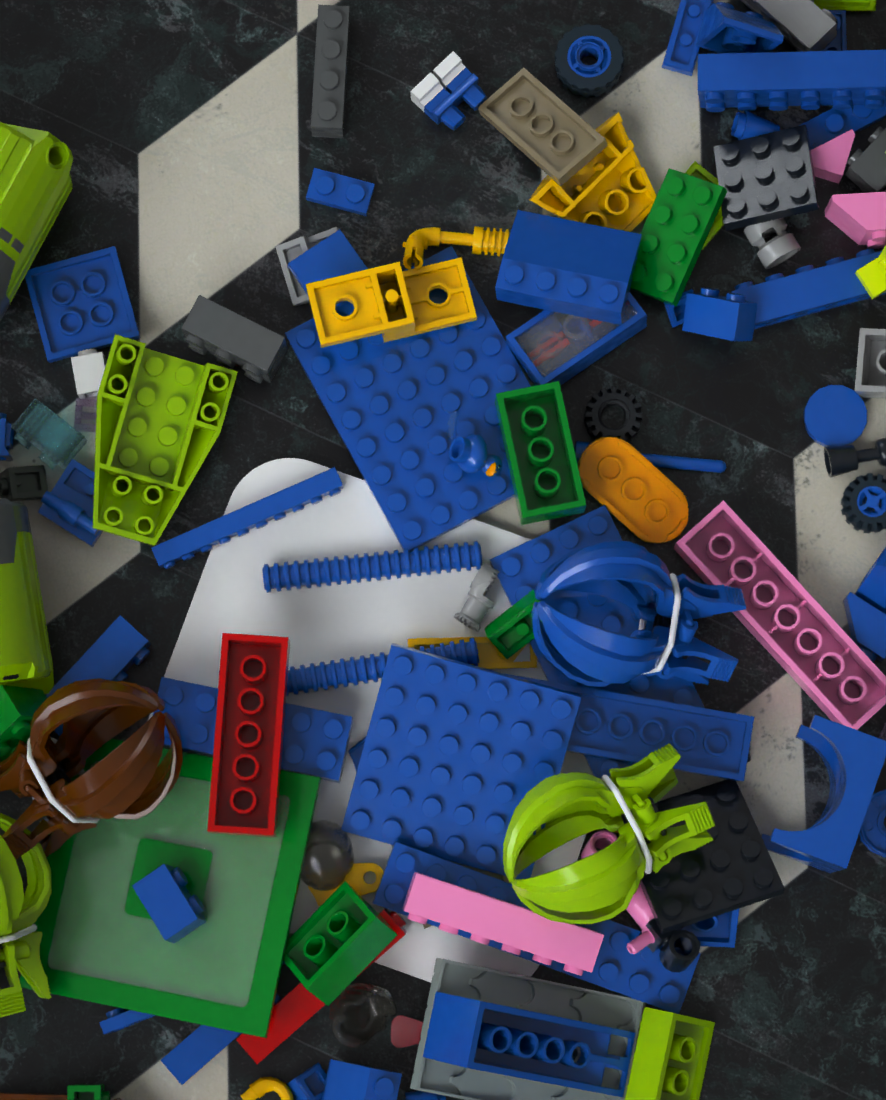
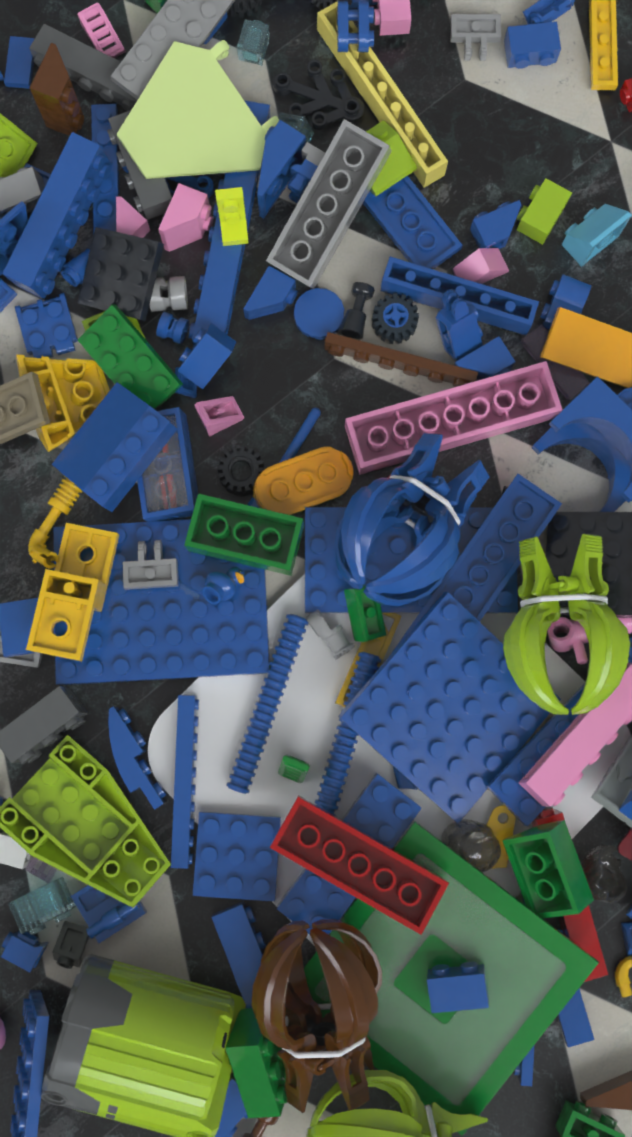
camera: 65 degrees left, 0 degrees up
(192, 609) = (236, 856): none -> blue plate
(252, 441) = (126, 749): none -> blue slope
(315, 626) = (293, 768): none -> green slope
(451, 374) = (150, 573): none -> light grey hinge
(664, 361) = (218, 414): none -> bright pink slope
(669, 127) = (47, 327): none -> blue plate
(736, 264) = (172, 328): none -> blue wheel
(819, 517) = (390, 358): none -> reddish brown plate
(828, 352) = (271, 294): none -> blue slope

